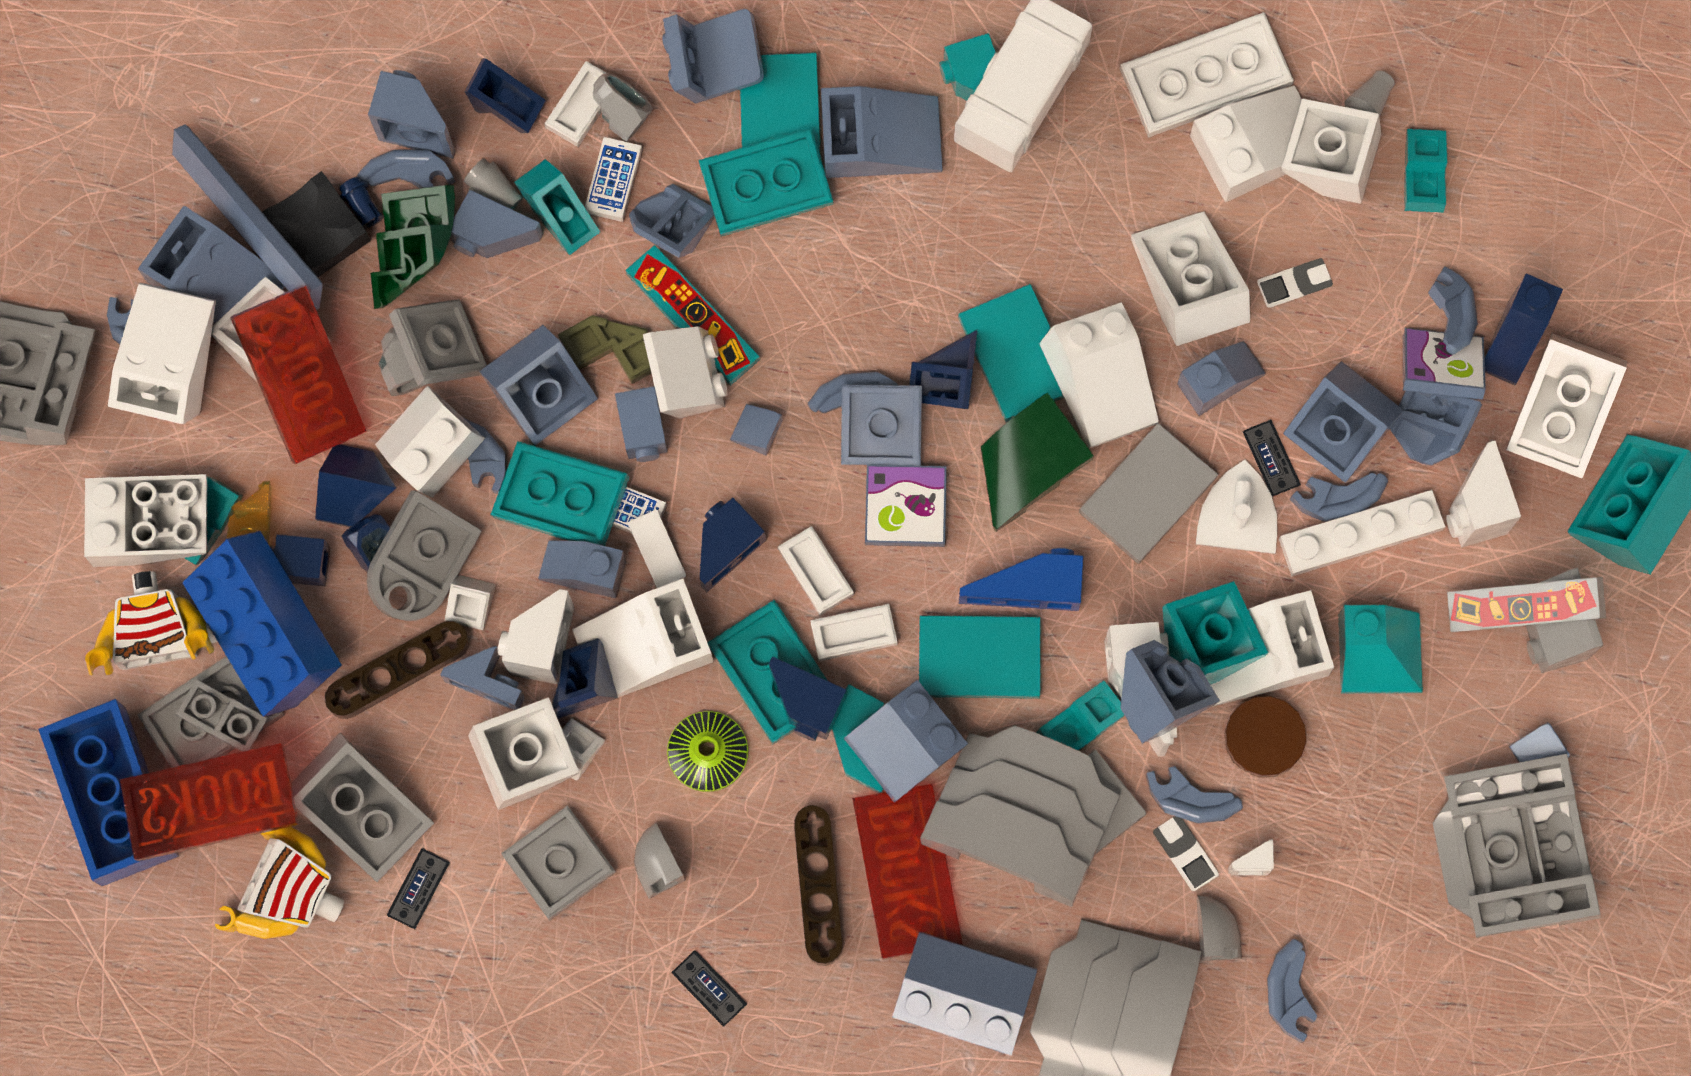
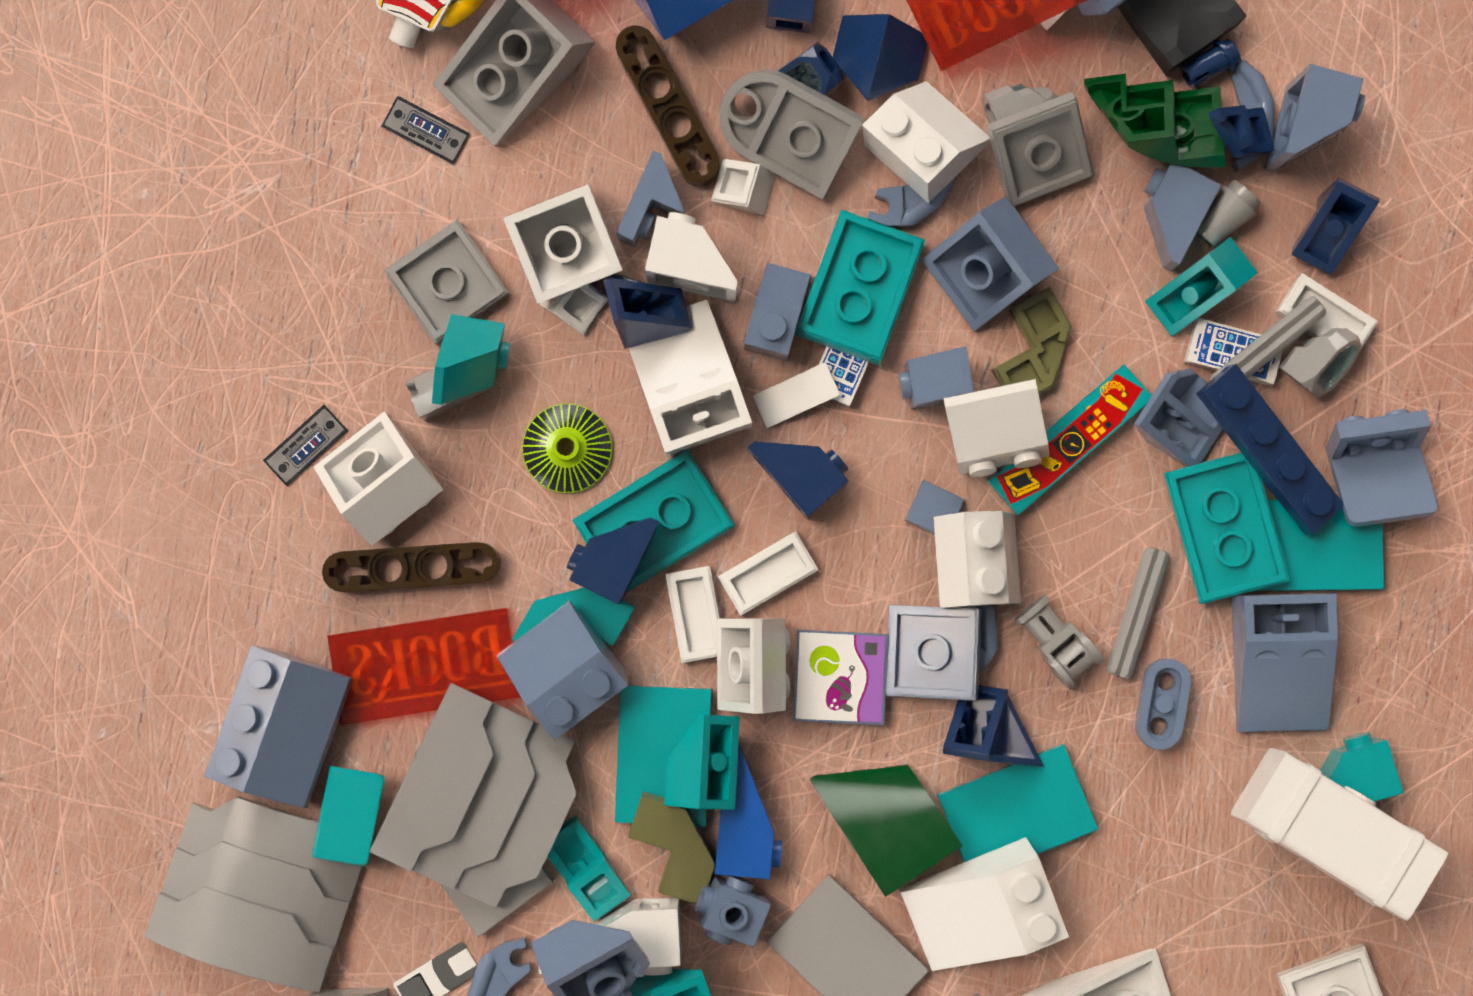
camera: 85 degrees right, 10 degrees up
(422, 170) = (1243, 130): none -> dark blue slope
(608, 150) = (1277, 337): none -> light grey axle
(627, 833) = (469, 358): none -> teal slope
(698, 145) = (1270, 449): none -> dark blue plate
(738, 916) = (377, 479): none -> white slope
(799, 389) = (977, 559): none -> white slope
(842, 254) = (1138, 612): none -> light grey axle
(871, 317) = (1060, 644): none -> light grey connector
(896, 578) = (752, 665): none -> white slope
(920, 228) = (1166, 704): none -> sand blue plate
(985, 612) = (704, 765): none -> teal slope
(1042, 643) = (675, 830): none -> olive tile
(1043, 928) = (348, 816): none -> teal slope
(1112, 589) = (742, 921): none -> sand blue brick

